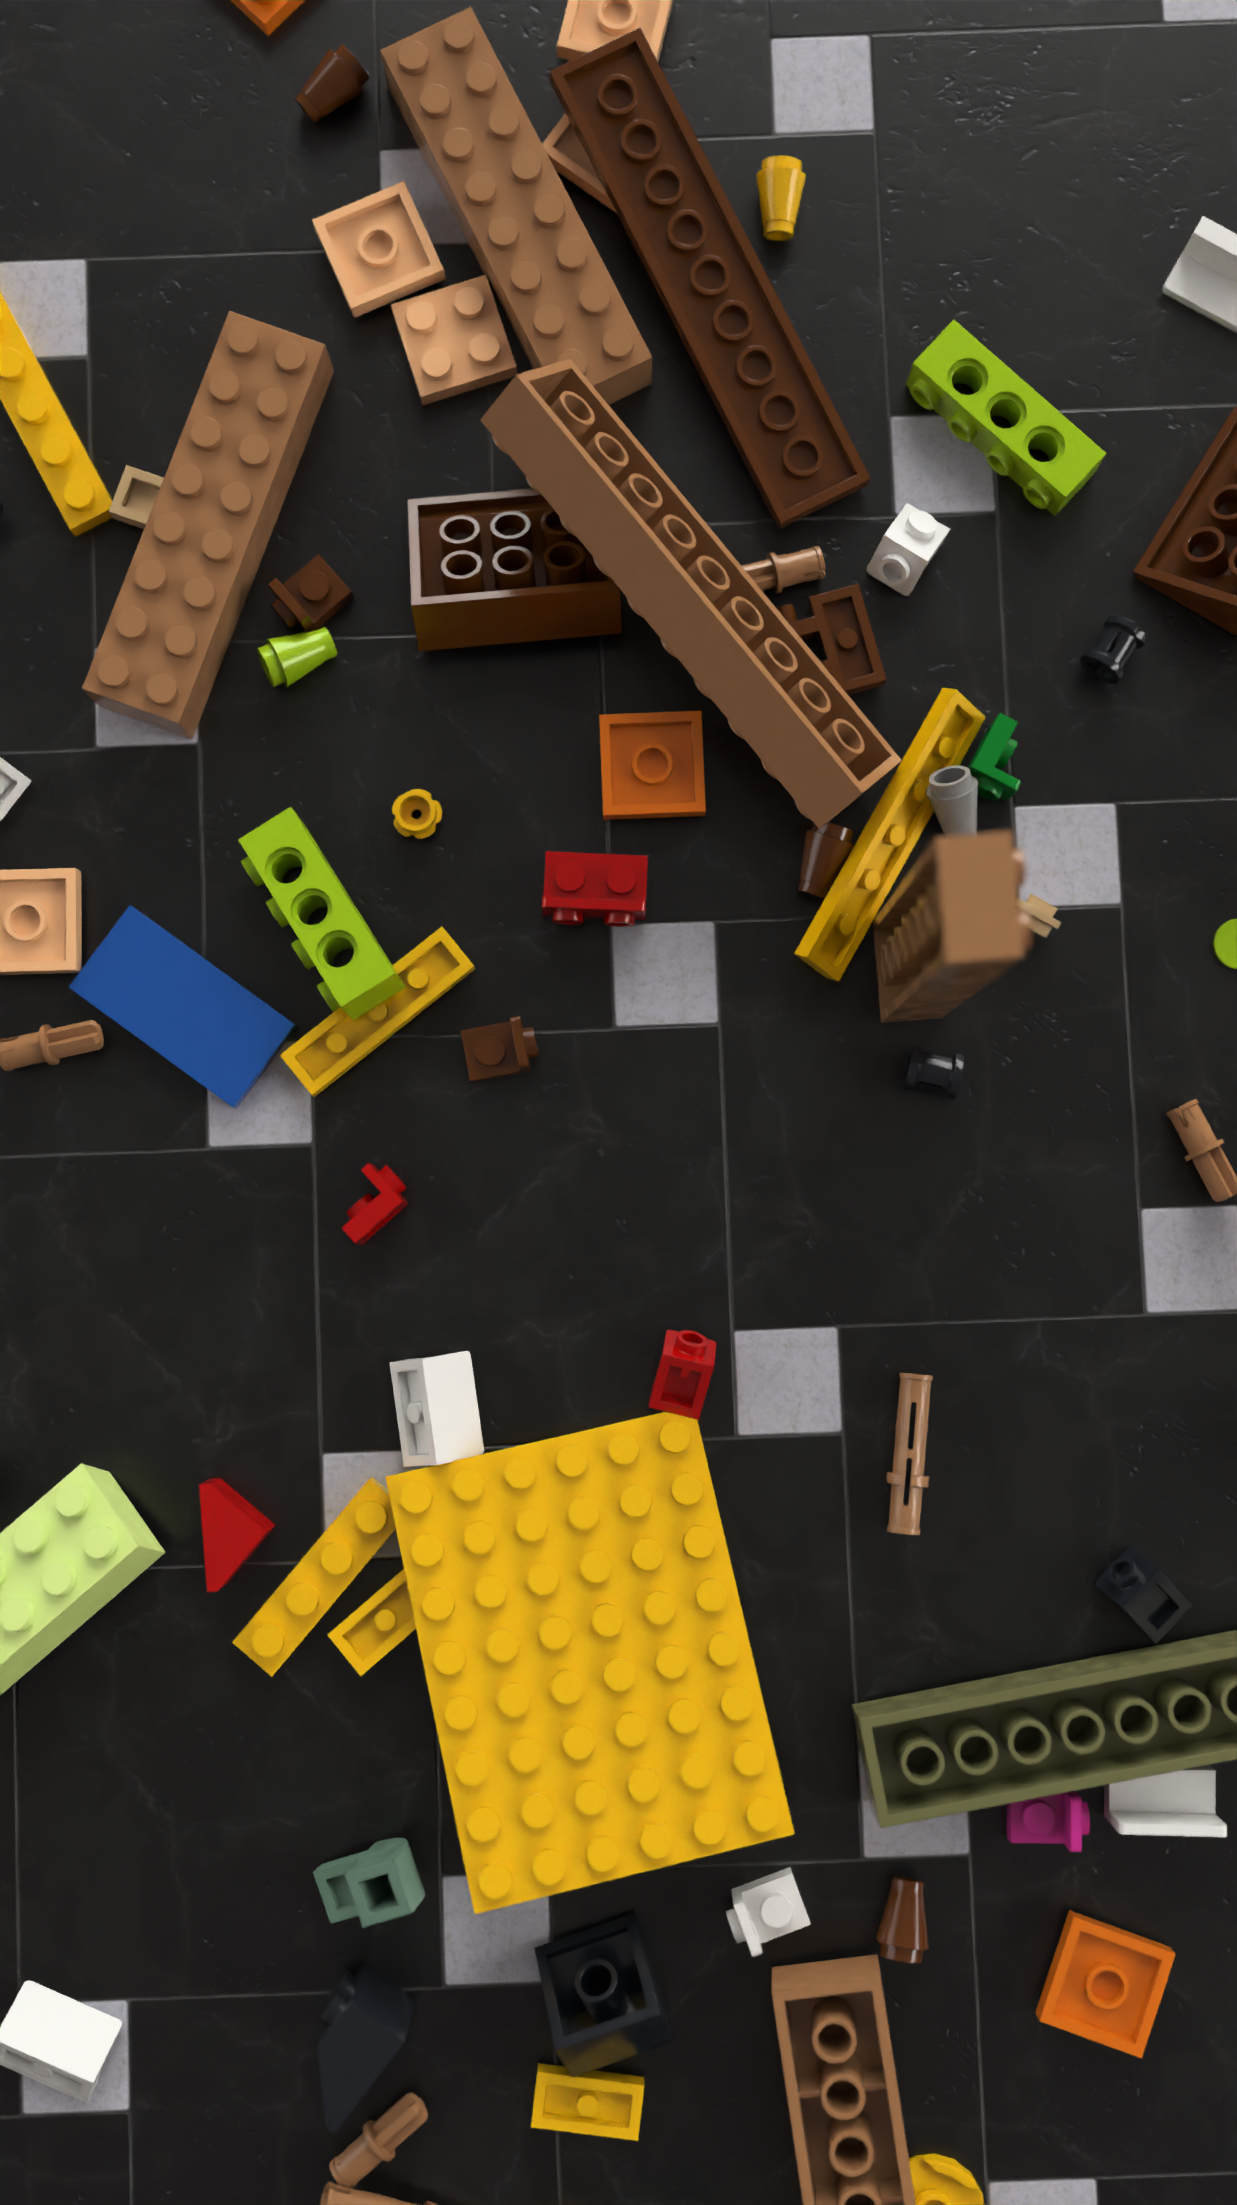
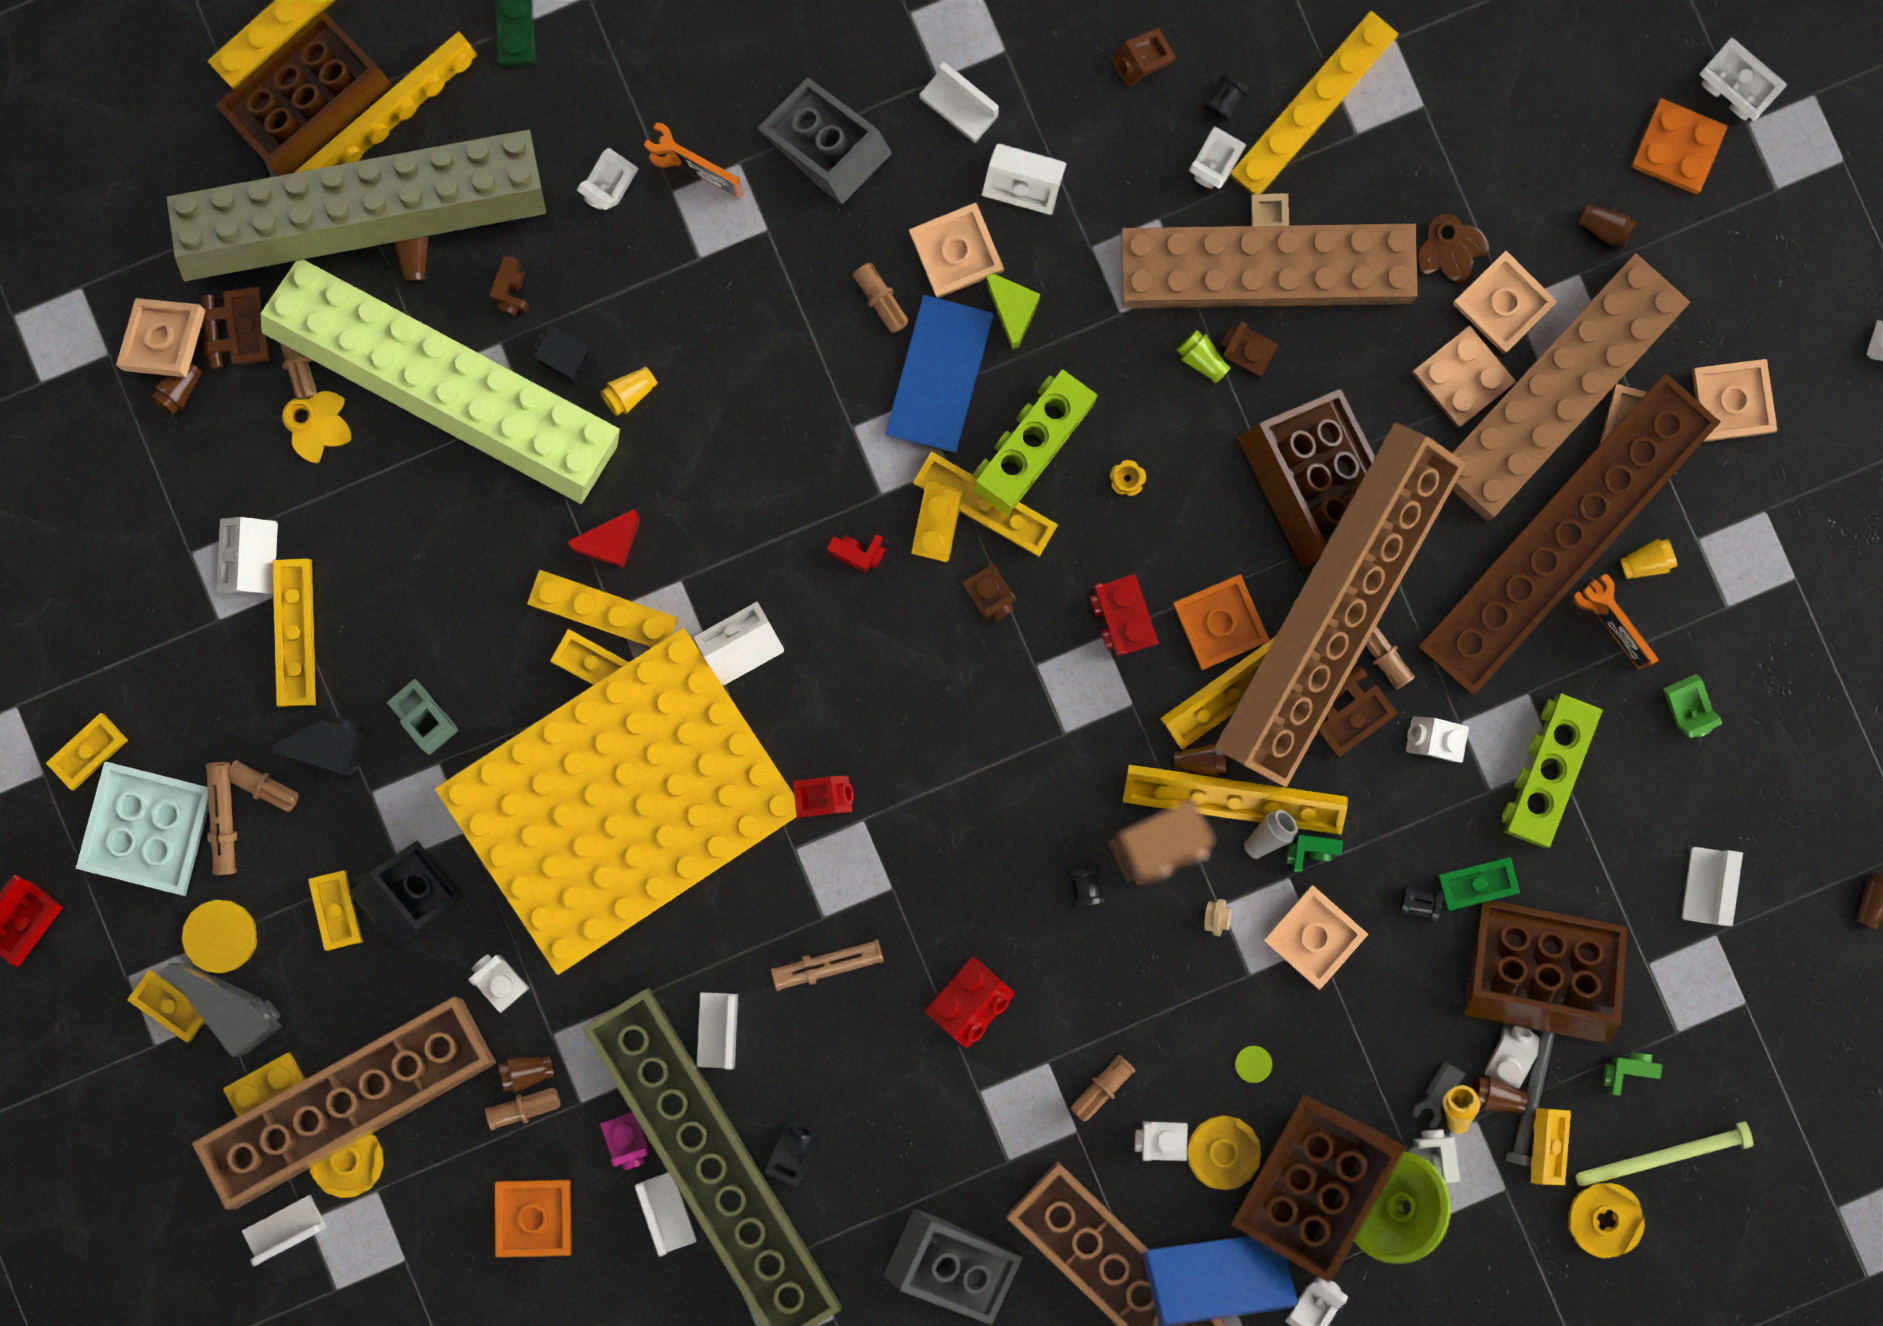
camera: 70 degrees right, 0 degrees up
(38, 1429) = (628, 390): none -> yellow cone
(43, 538) = (1216, 159): none -> white bracket
(128, 875) = (1014, 306): none -> lime slope
(185, 2016) = (294, 633): none -> yellow plate
(289, 286) = (1454, 253): none -> reddish brown plate
(375, 1082) = (937, 521): none -> yellow plate
(750, 804) = (1214, 701): none -> yellow plate
(849, 257) = (1615, 620): none -> orange flag
(942, 1633) = (717, 1030): none -> white panel
(951, 1942) = (522, 1108): none -> medium nougat axle
(988, 216) = (1691, 707): none -> bright green bracket
(1028, 1282) = (970, 1002): none -> red bracket
(1107, 800) = (1315, 937): none -> light nougat plate
(1115, 566) = (1478, 884): none -> green plate

